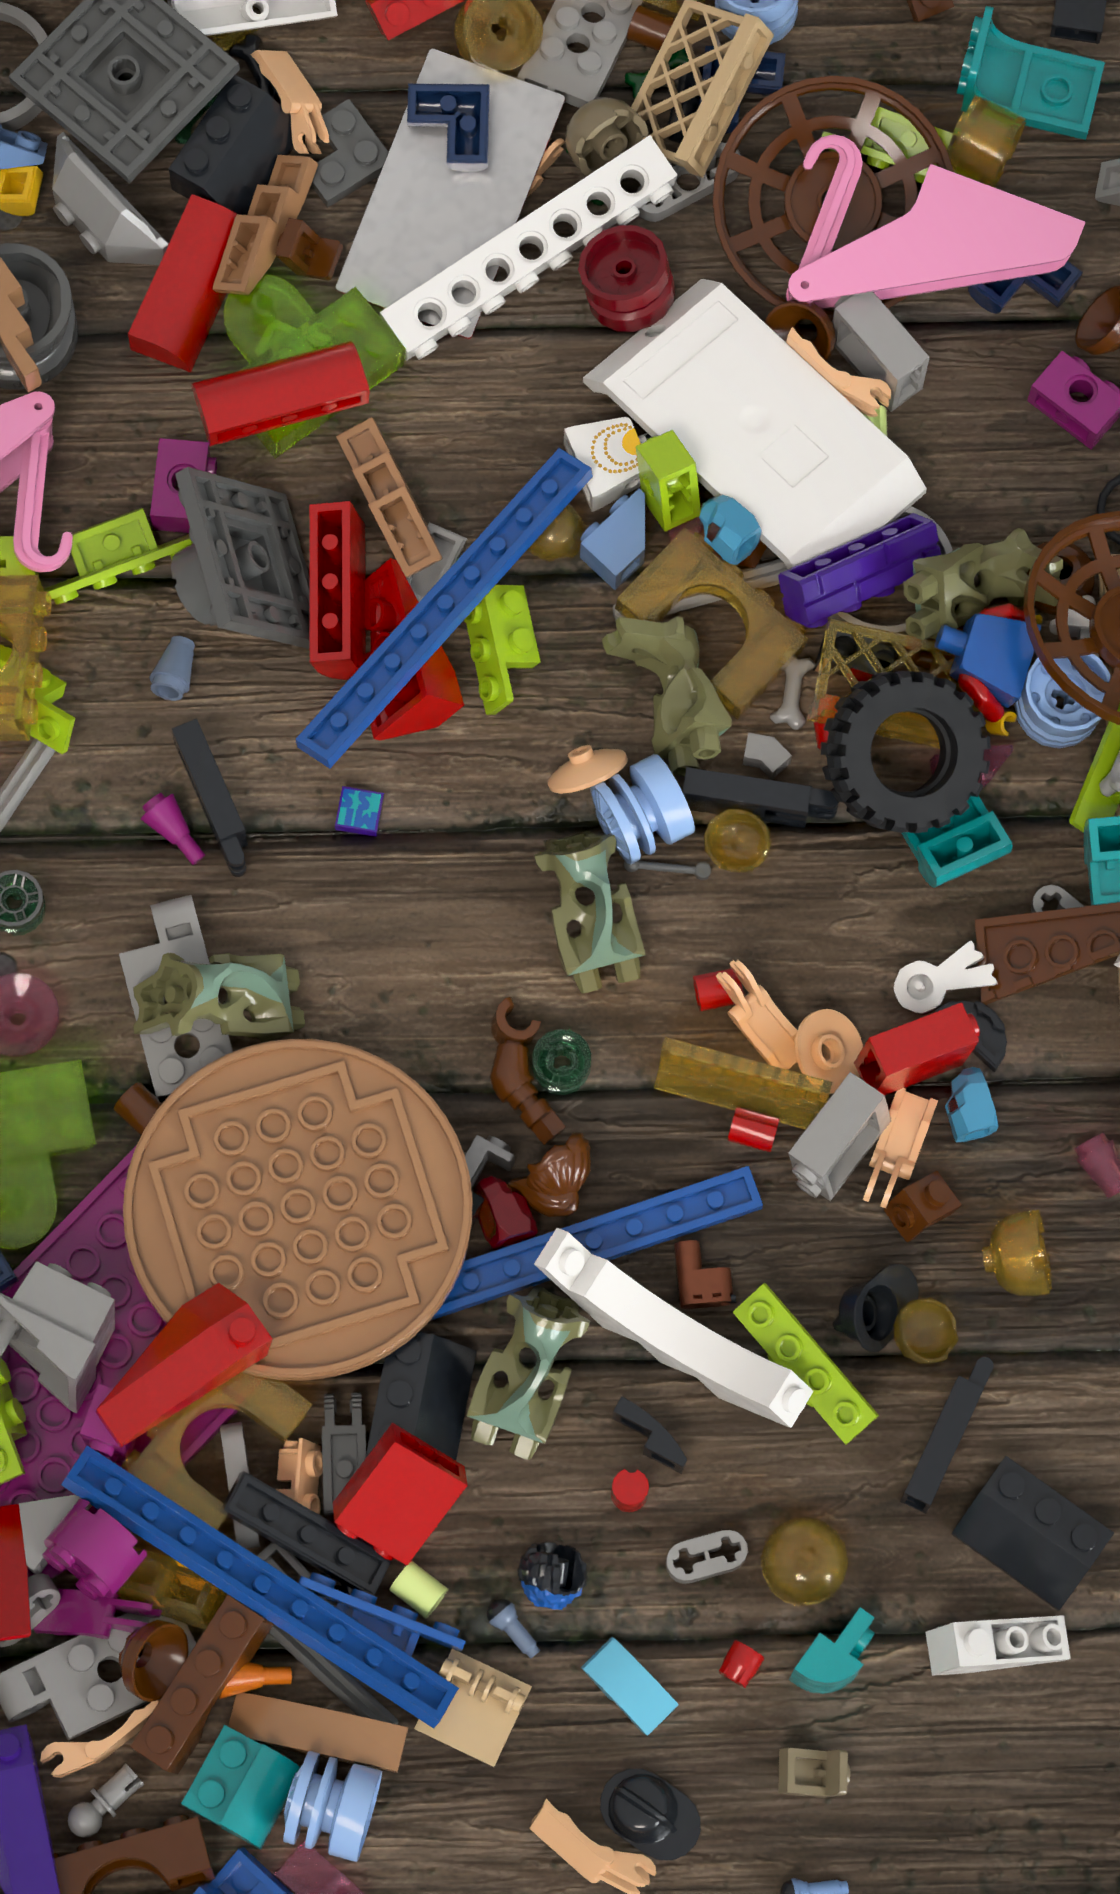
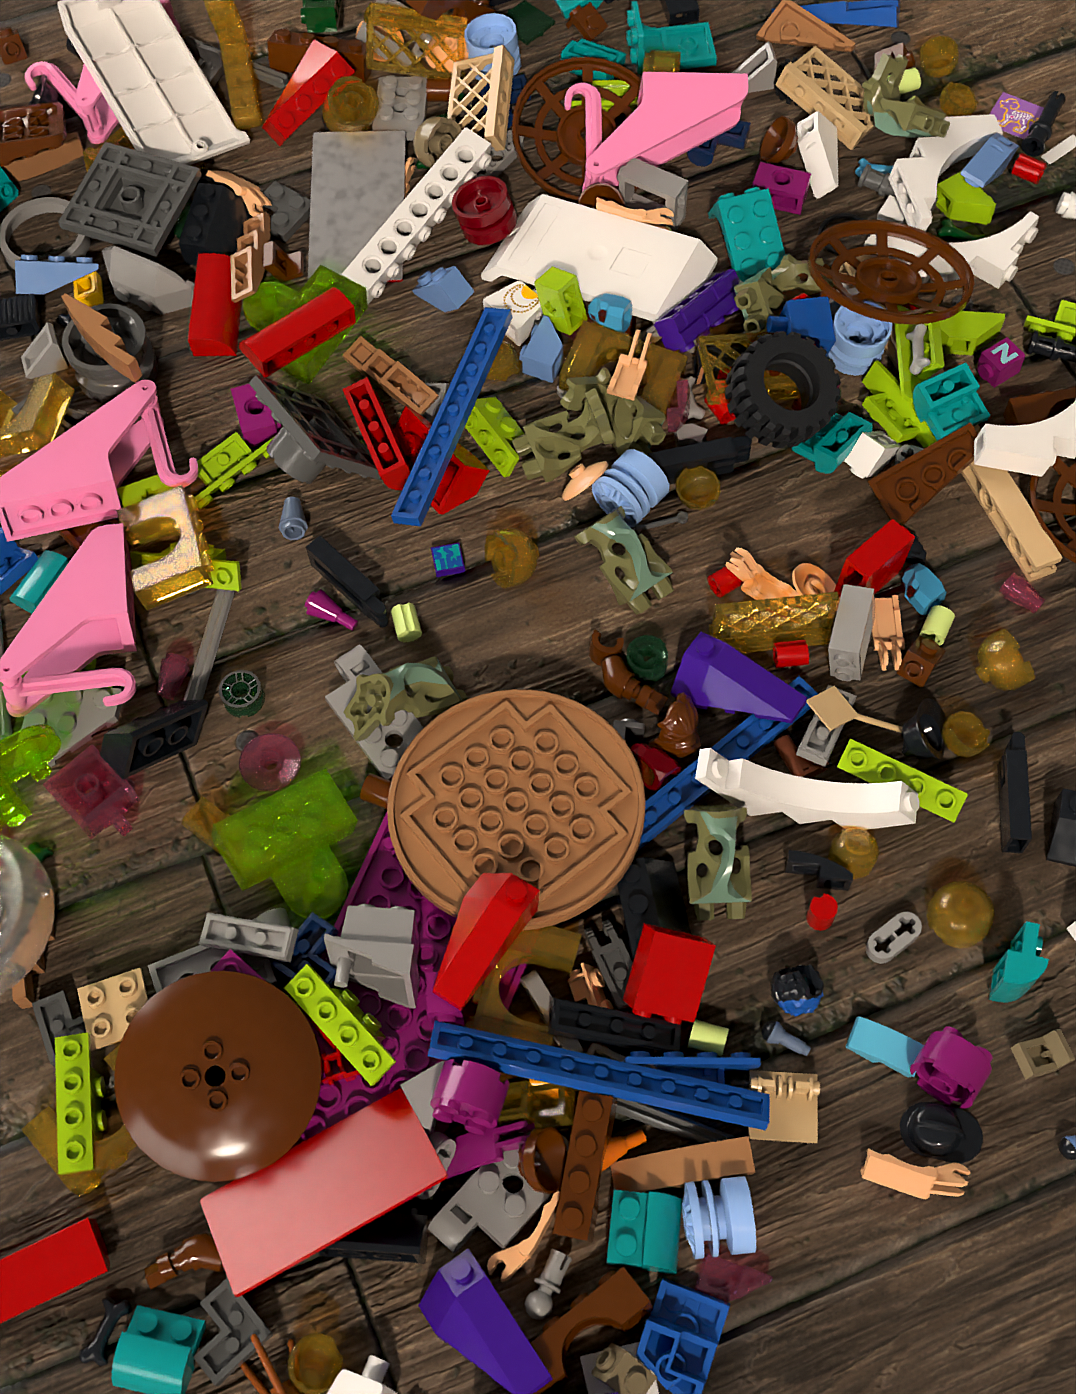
camera: 15 degrees left, 10 degrees down
(267, 884) = (406, 622): none -> yellowish green piece
(444, 846) = (512, 556): none -> clear yellow cylinder
(464, 112) = (345, 154): dark blue brick -> none
(519, 383) = (443, 288): none -> medium blue slope
(559, 697) = (548, 445): none -> olive hips
(647, 1136) = (729, 680): none -> dark purple wedge
(692, 1744) = (952, 1067): none -> magenta brick
(709, 1429) = (855, 851): none -> clear yellow hair
(712, 636) = (630, 371): none -> light nougat arm
(741, 1663) = (953, 999): red hose -> none
(752, 1247) = (818, 740): none -> light grey tile
(754, 723) = (677, 416): none -> clear pink slope
(770, 1232) = (836, 711): none -> tan piece
(901, 62) = (590, 49): none -> teal brick
(923, 985) = (856, 529): white piece -> none
(966, 1165) = (937, 624): none -> yellowish green piece
(991, 466) = (749, 231): none -> teal bracket
(1003, 880) = (872, 454): none -> white slope
(1056, 840) = (891, 410): none -> lime bracket

